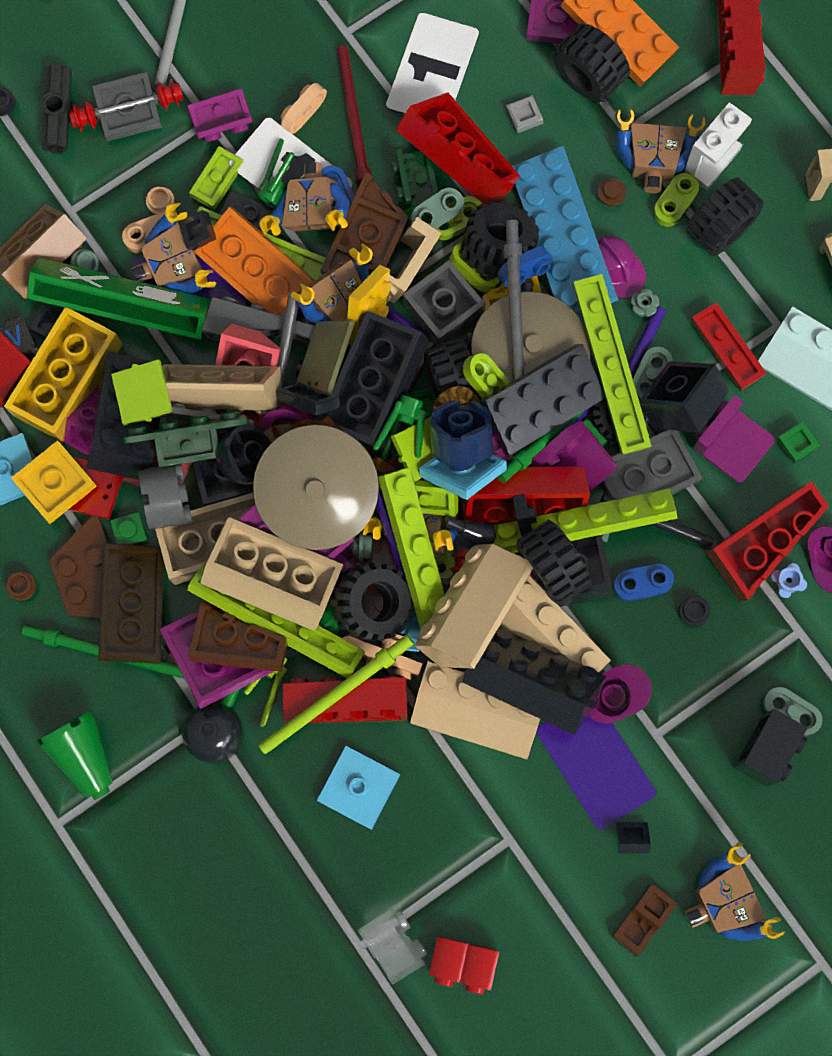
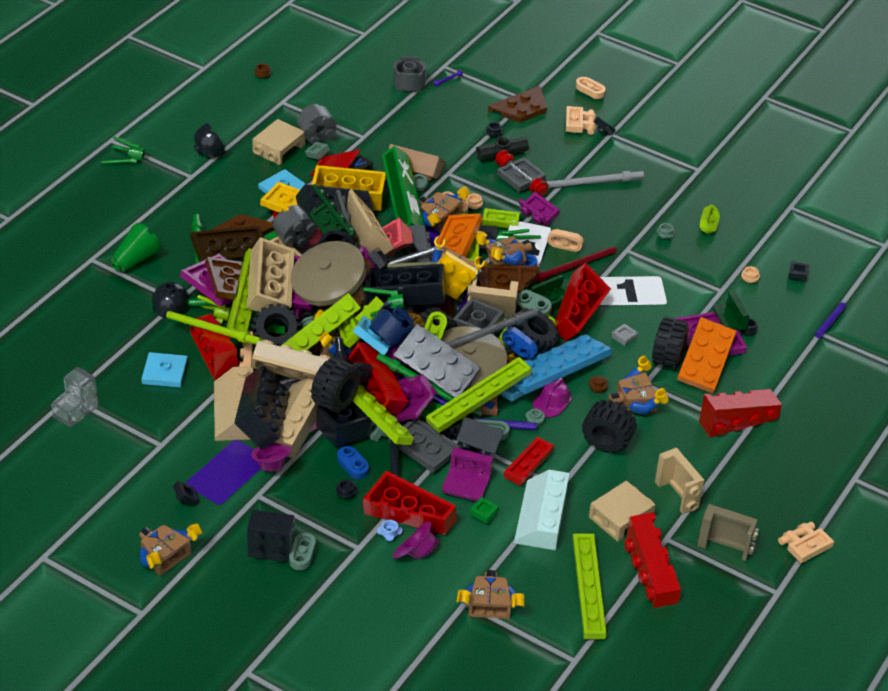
camera: 60 degrees right, 35 degrees down
(20, 585) = (220, 208): reddish brown plate -> none
(142, 392) = (344, 189): lime piece -> none
(197, 230) = (459, 207): black plate -> none
(464, 964) = (76, 437): red brick -> none
(644, 920) = (134, 516): reddish brown slope -> none
(717, 146) = (654, 411): white panel -> none

